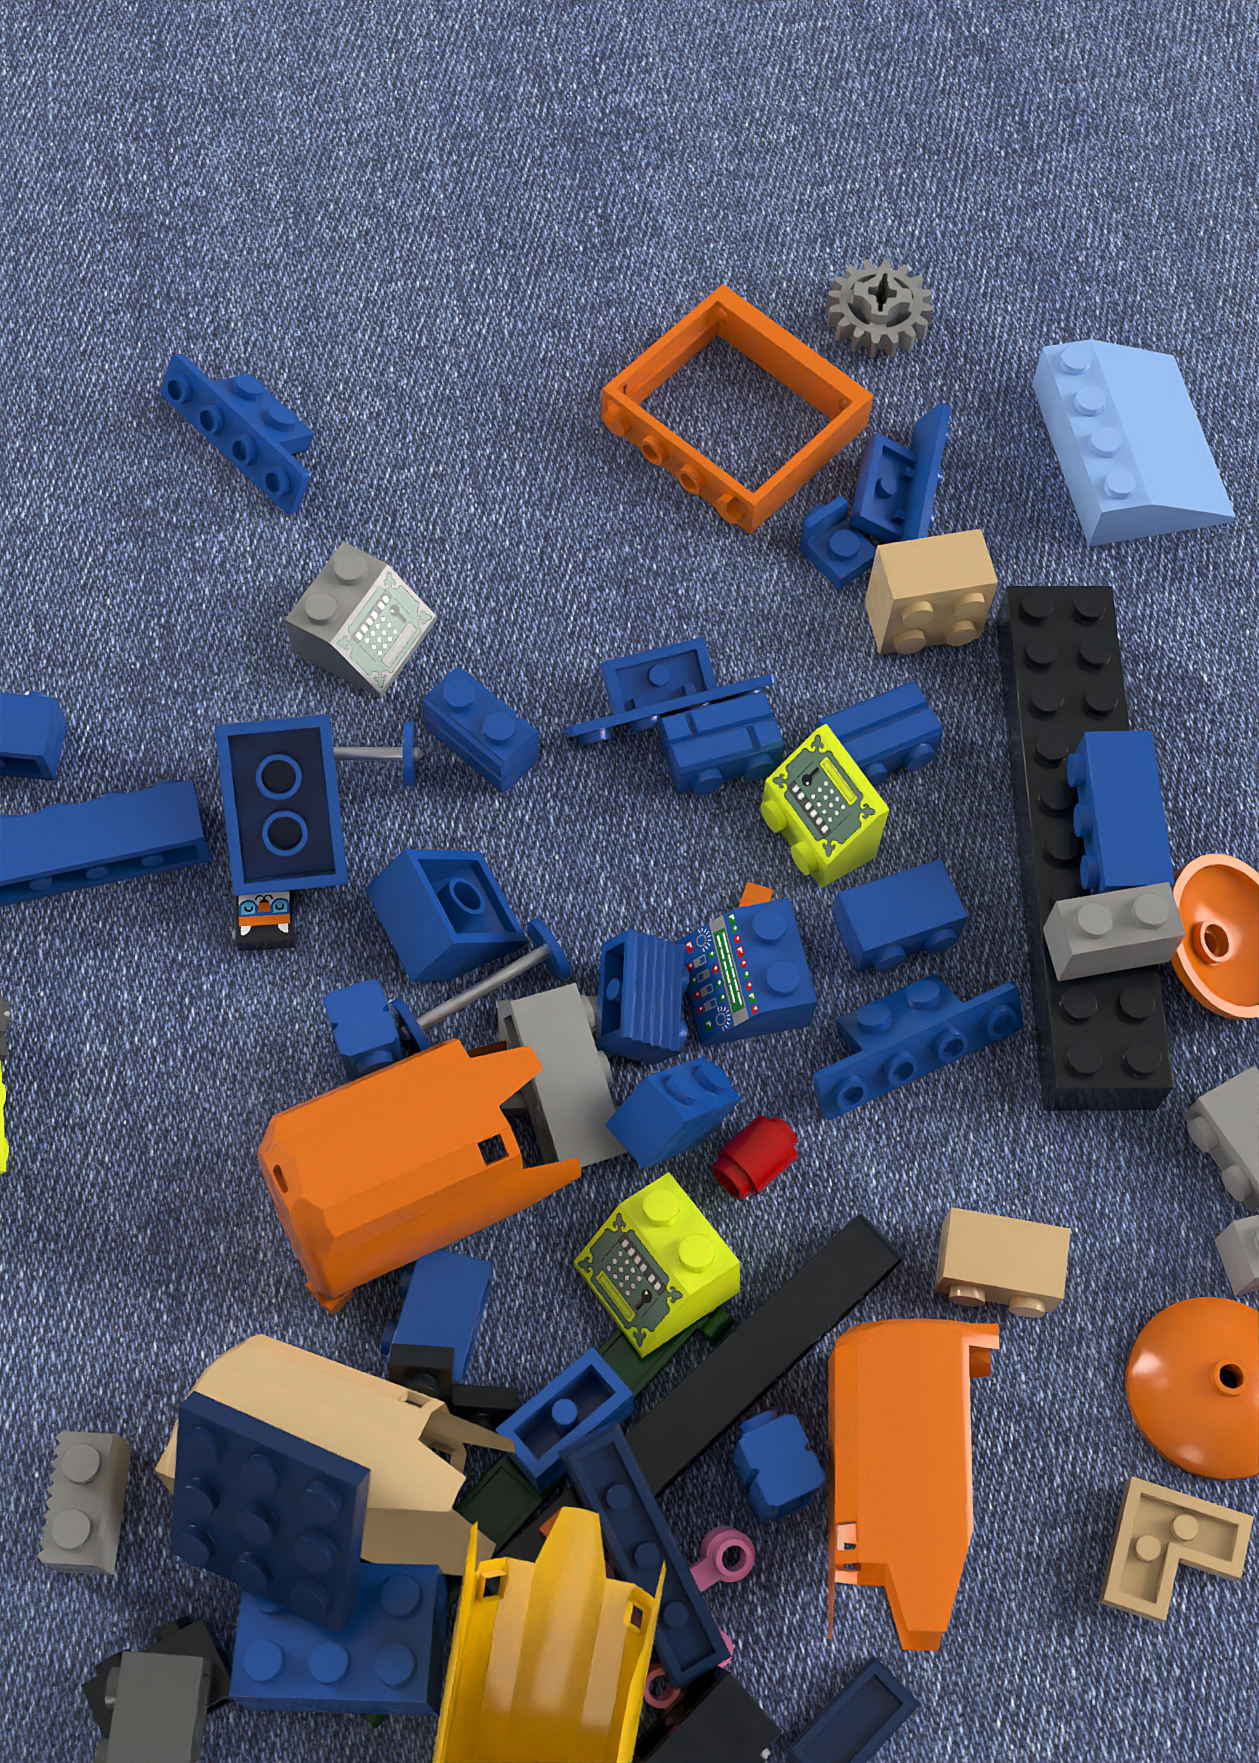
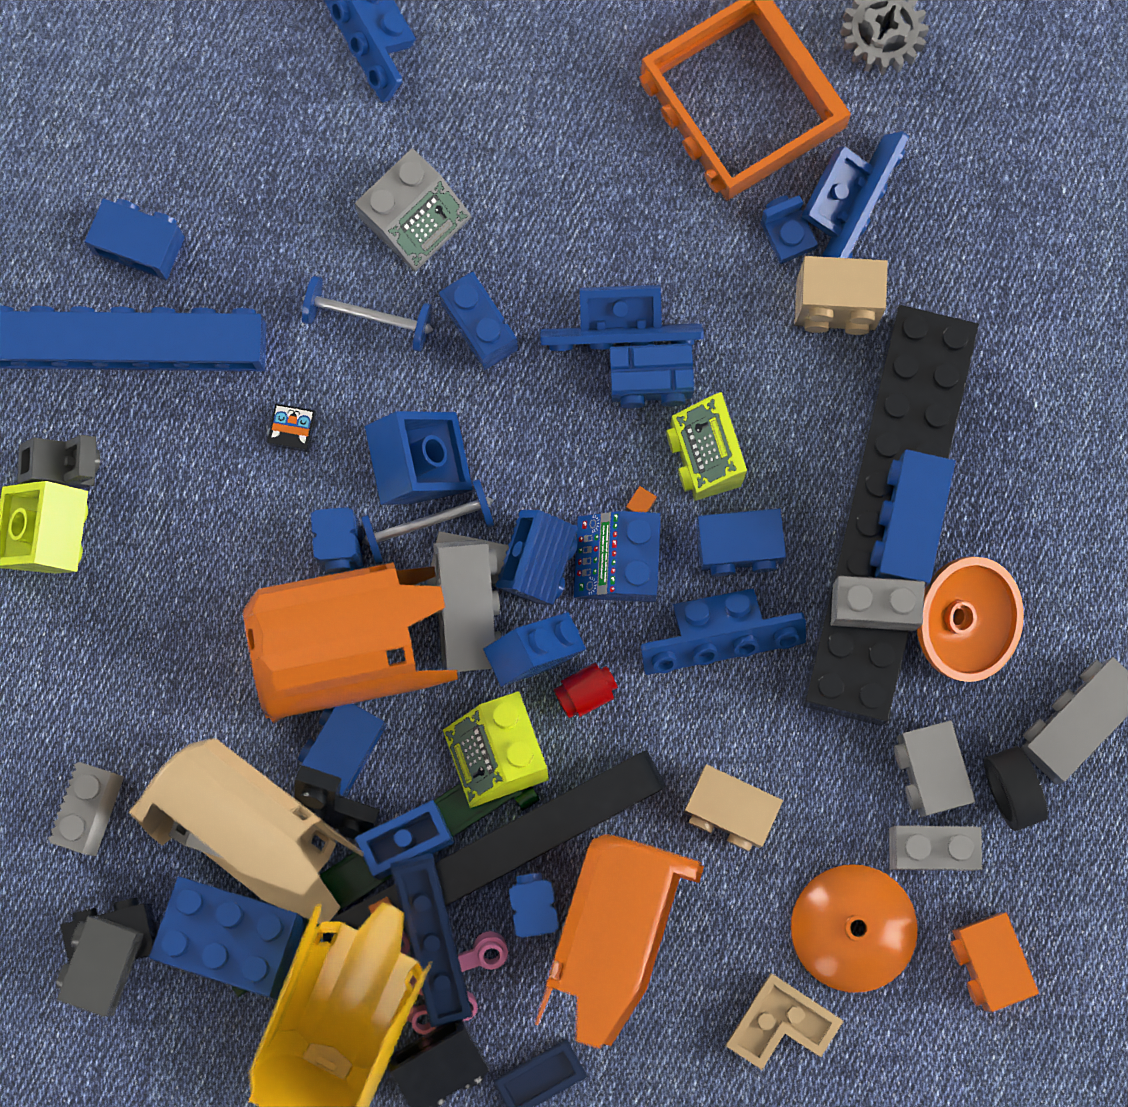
camera: 20 degrees right, 15 degrees up
(268, 1510) = (193, 858): dark blue plate -> none
(281, 804) = (318, 351): blue brick -> none
(888, 732) = (769, 398): blue brick -> none
(1128, 441) = (1046, 194): light blue slope -> none

